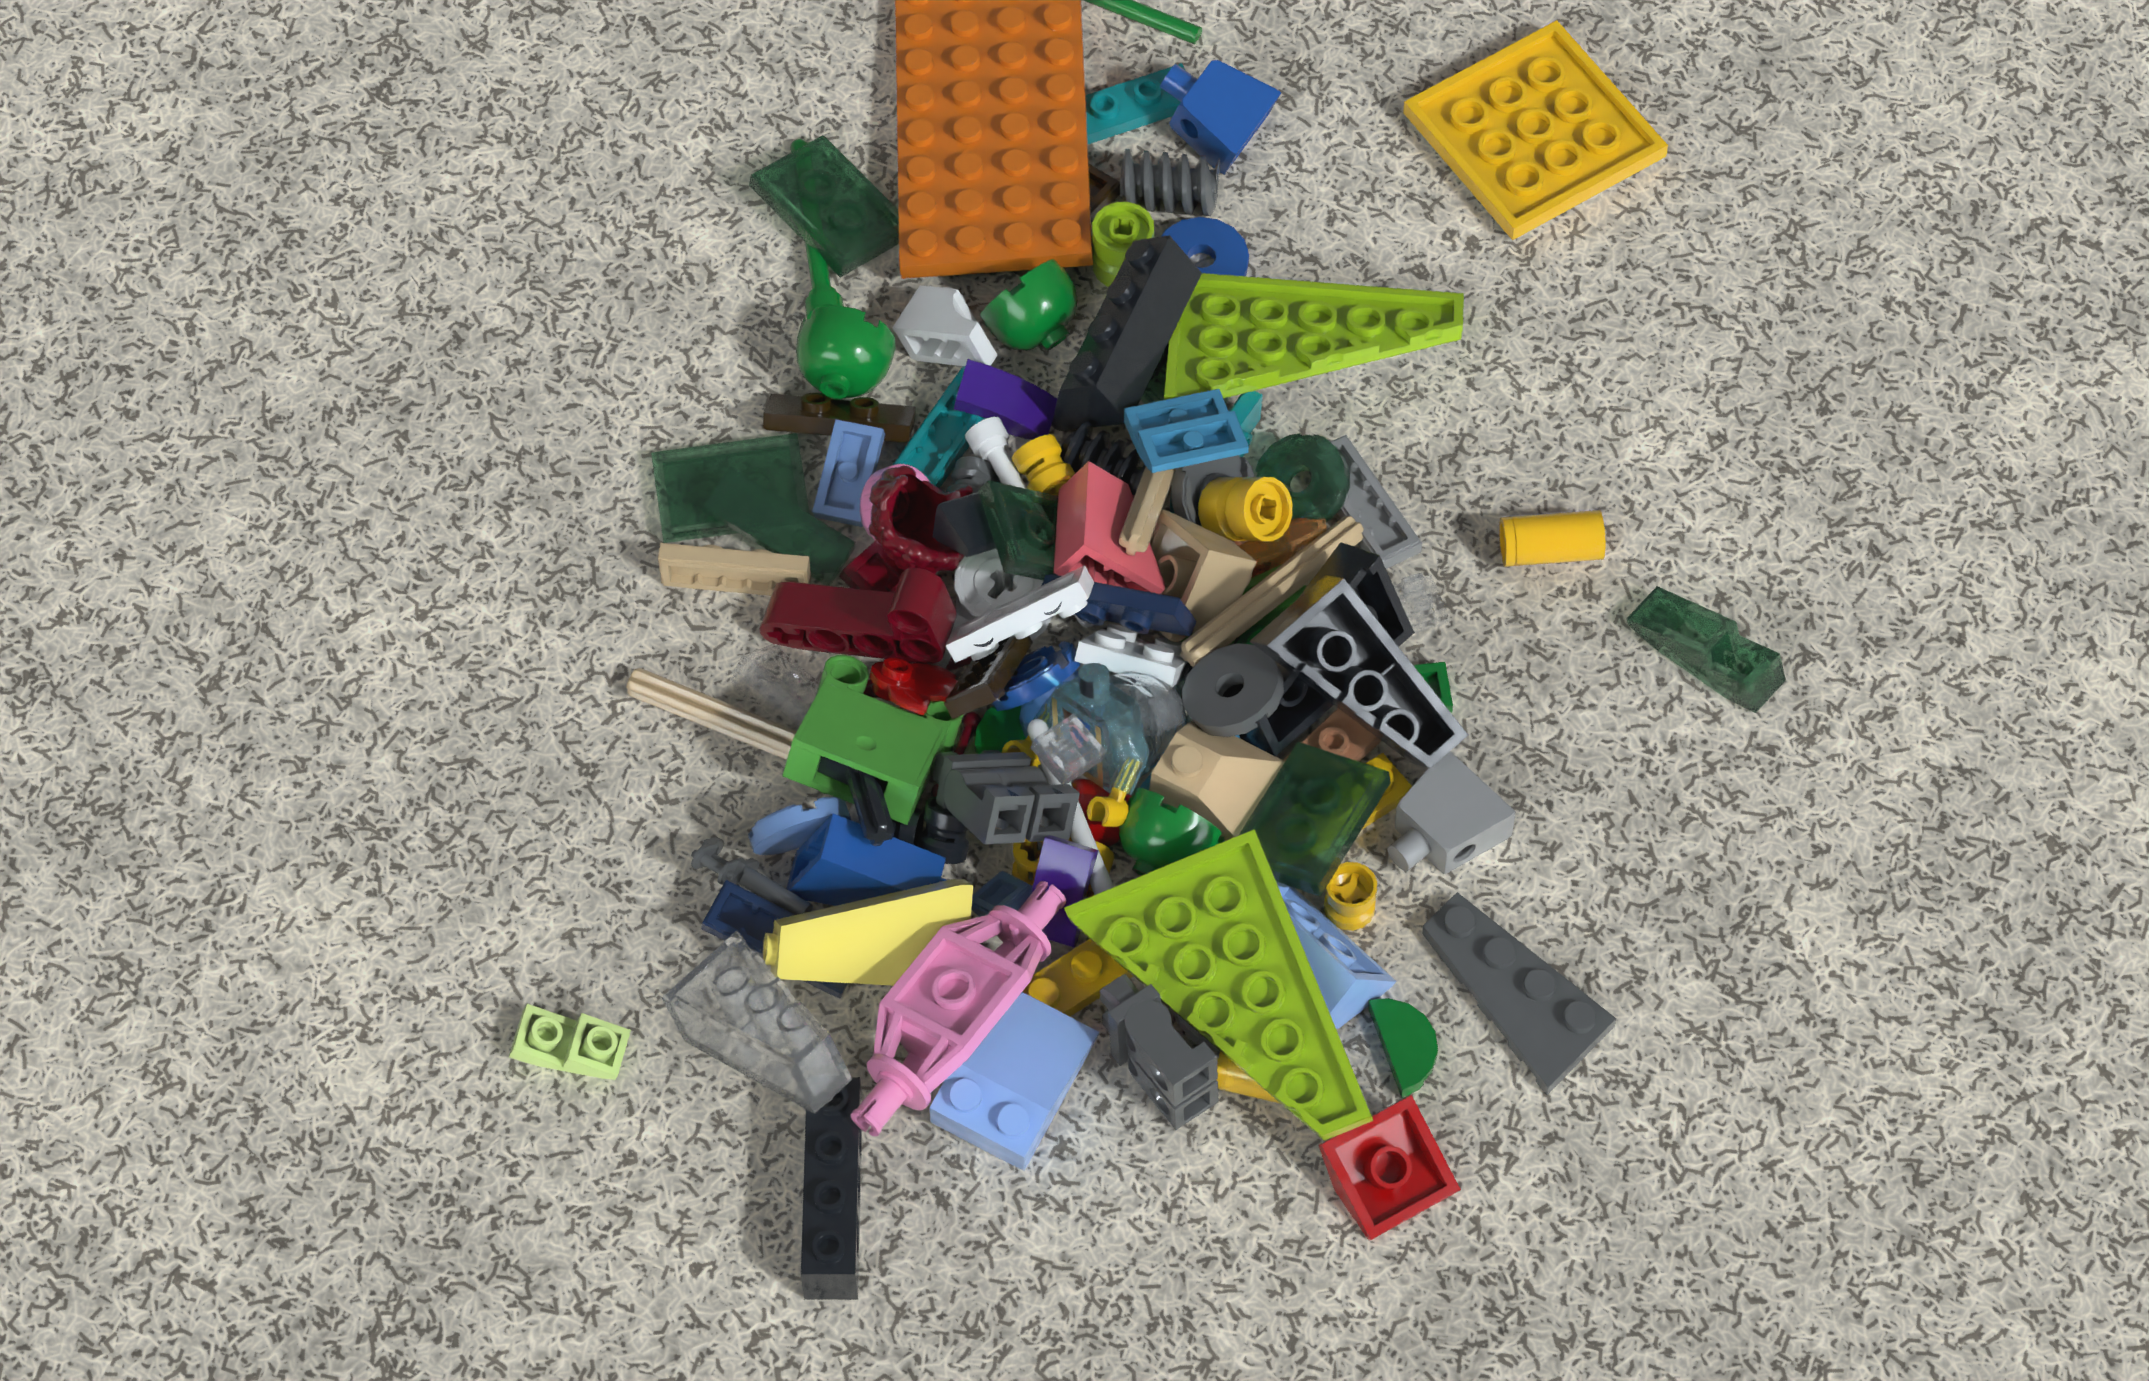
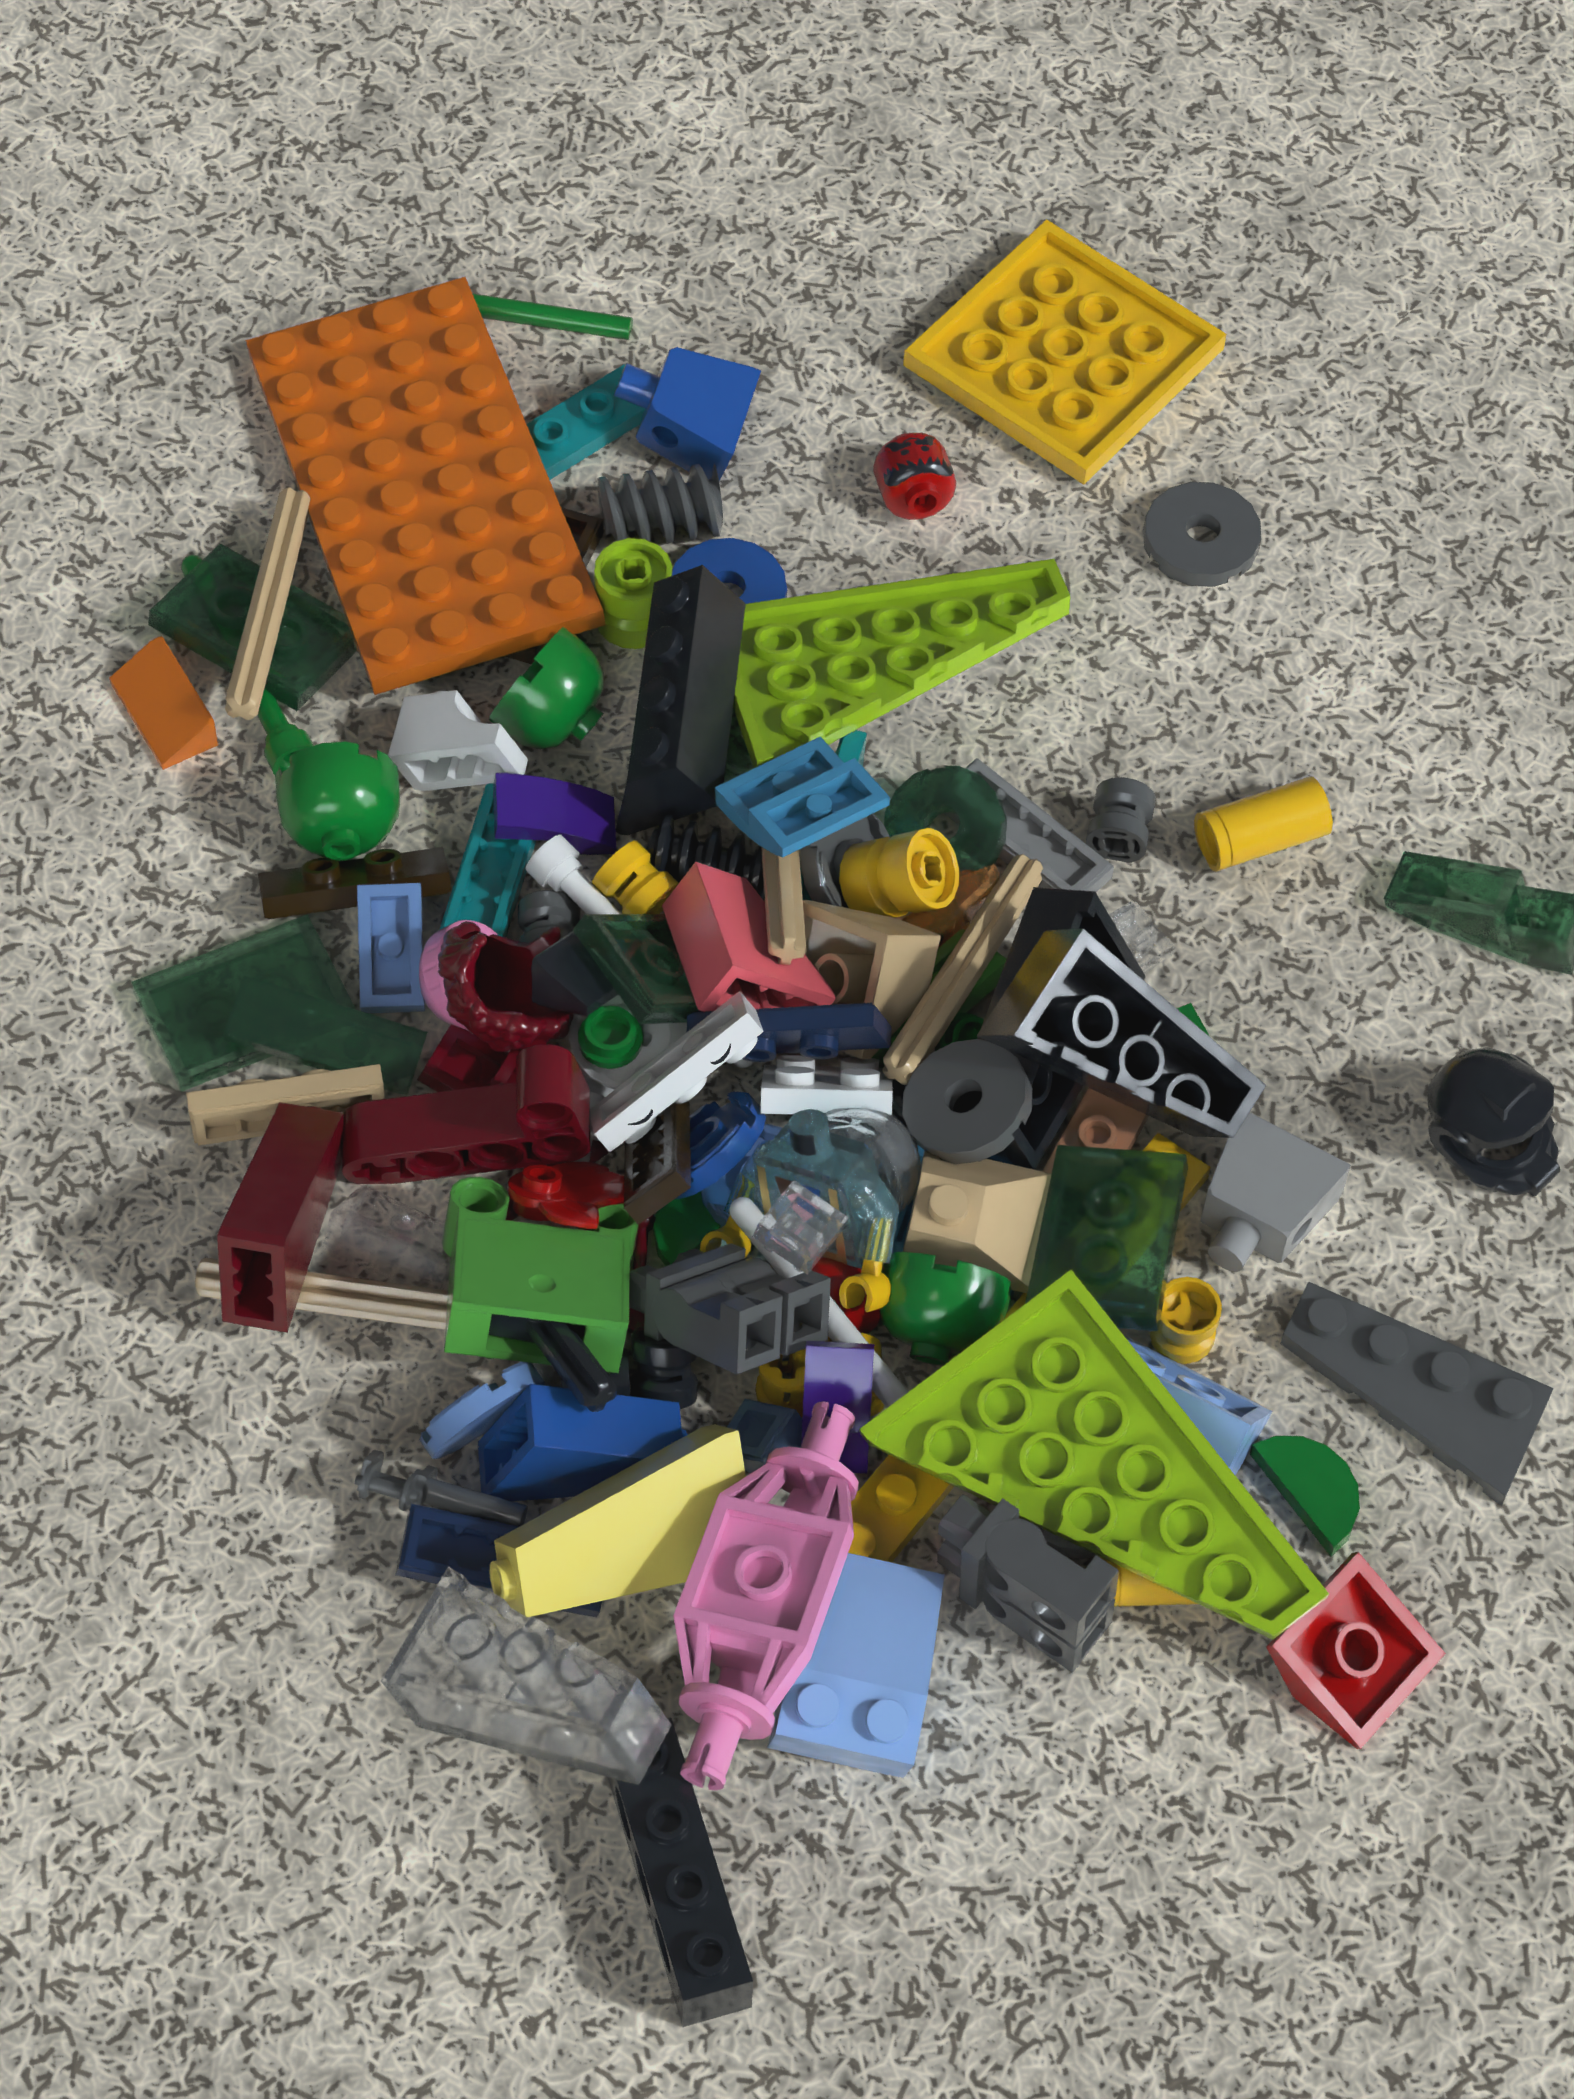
camera: 20 degrees left, 0 degrees up
(570, 1045) = (272, 1772): yellowish green slope -> none
(697, 648) = (278, 1216): none -> dark red slope
(742, 250) = (164, 704): none -> orange slope
(841, 190) = (267, 604): none -> tan axle
(983, 578) = (610, 1037): none -> green plate
(1377, 203) = (913, 472): none -> red head
(1443, 505) = (1121, 820): none -> dark grey wheel
(1596, 277) = (1206, 506): none -> dark grey tile
(1643, 790) = (1492, 1103): none -> black helmet

